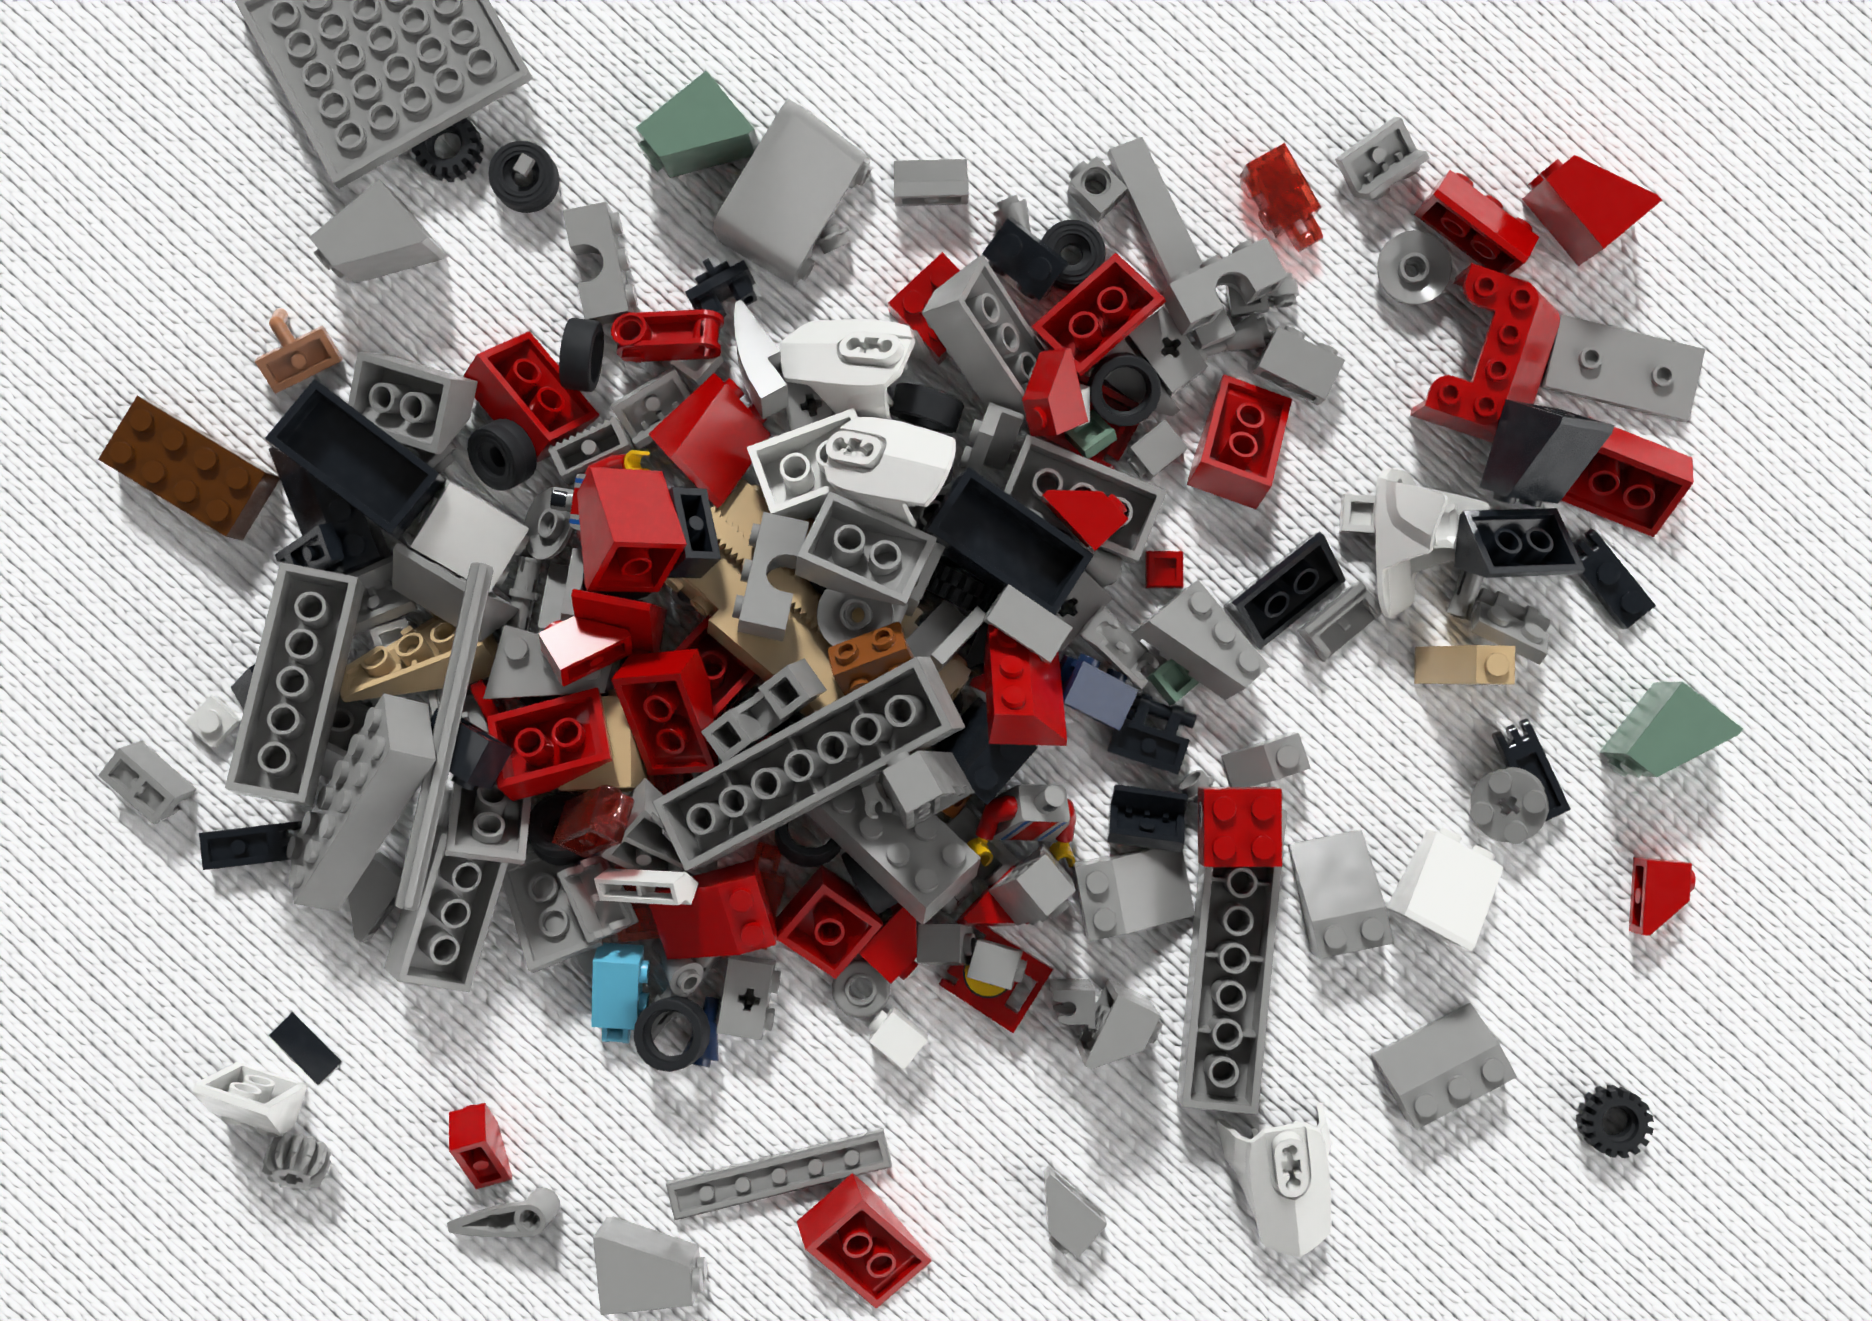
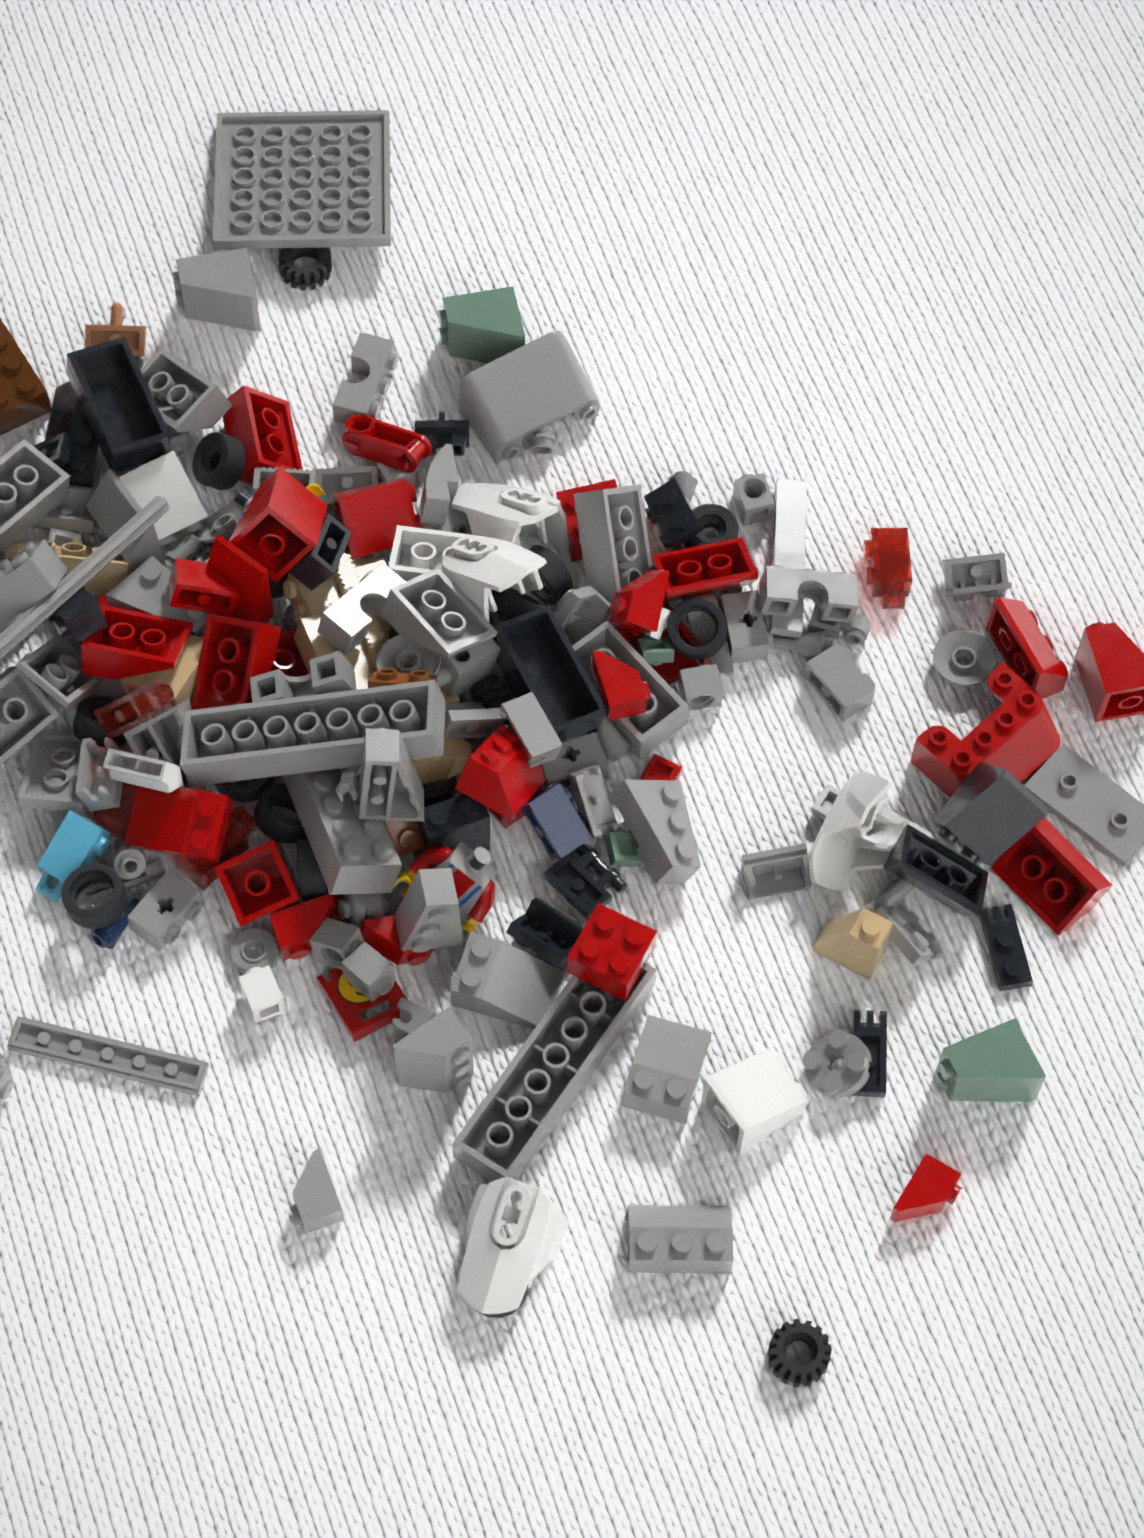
camera: 25 degrees right, 25 degrees down
(524, 165) = (350, 293): light grey piece -> none
(527, 198) = (346, 289): black tyre -> none
(581, 354) = (316, 425): black tyre -> none
(862, 1241) = (142, 1136): red slope -> none
(931, 182) = (634, 442): light grey panel -> none
(1240, 442) = (765, 712): red slope -> none
(1266, 761) = (674, 940): light grey slope -> none
(1286, 590) = (744, 825): black slope -> none

